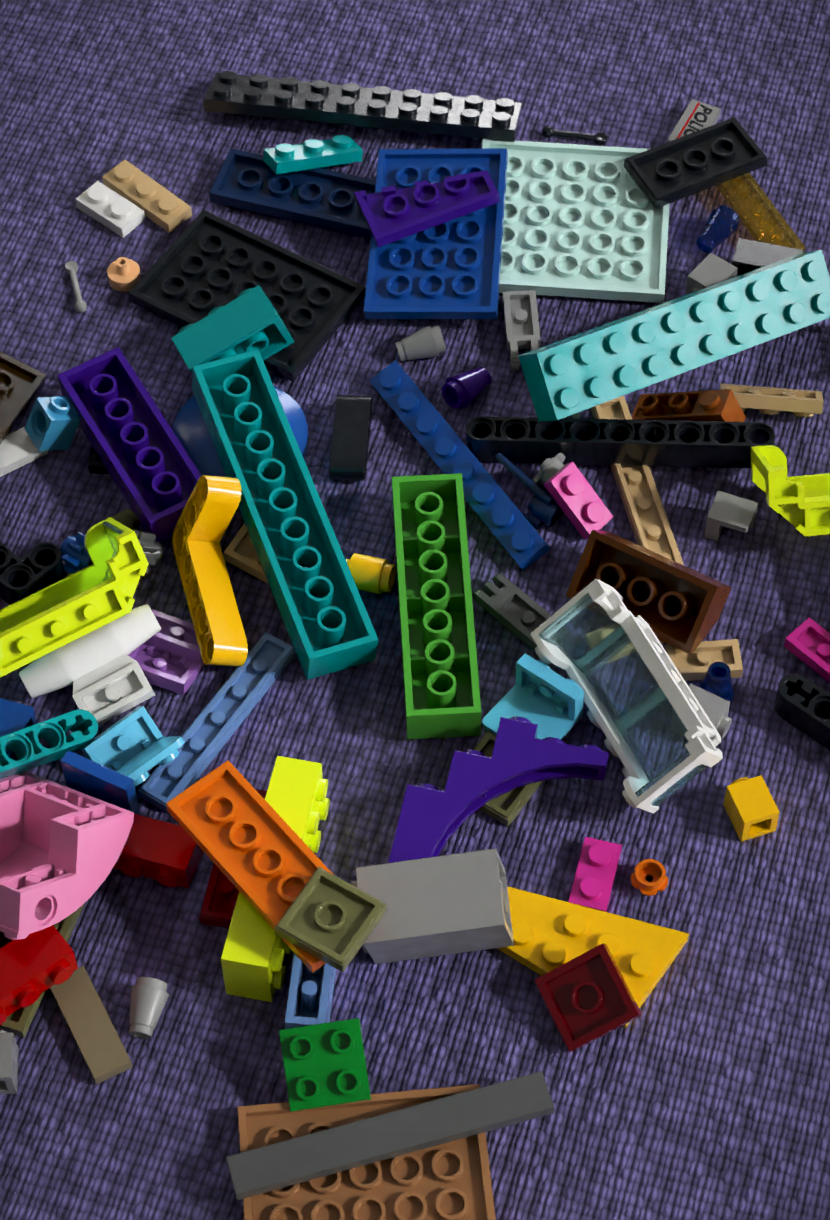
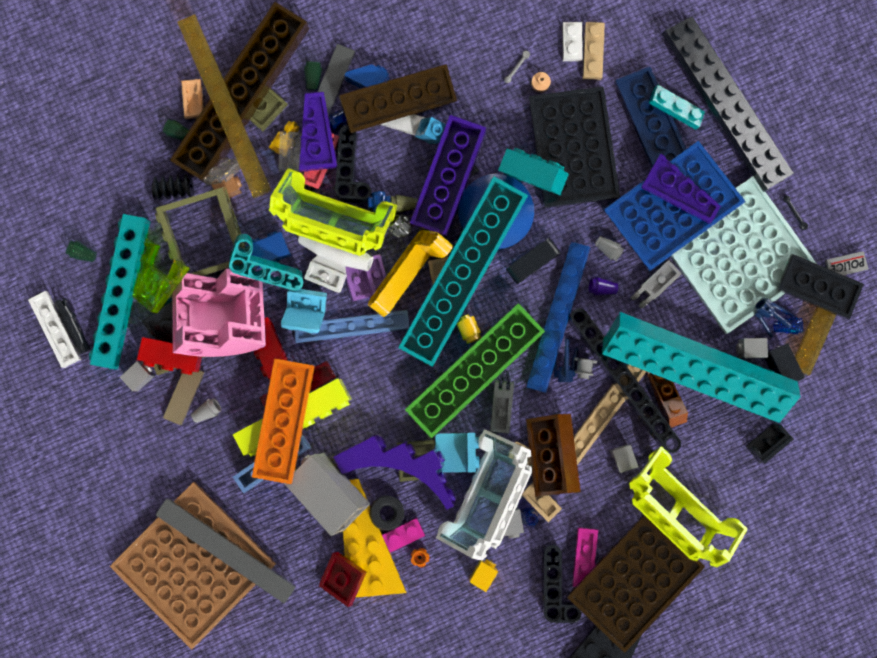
camera: 45 degrees right, 30 degrees up
(99, 781) = (275, 313): blue tile -> none
(324, 1064) = (232, 503): green hinge -> none
(330, 919) = (275, 469): olive tile -> none
(539, 886) = (375, 513): none -> black tyre
(578, 500) = (577, 387): plate -> none
(672, 228) = (765, 308): none -> dark blue plant
(773, 400) = (706, 425): tan plate -> none

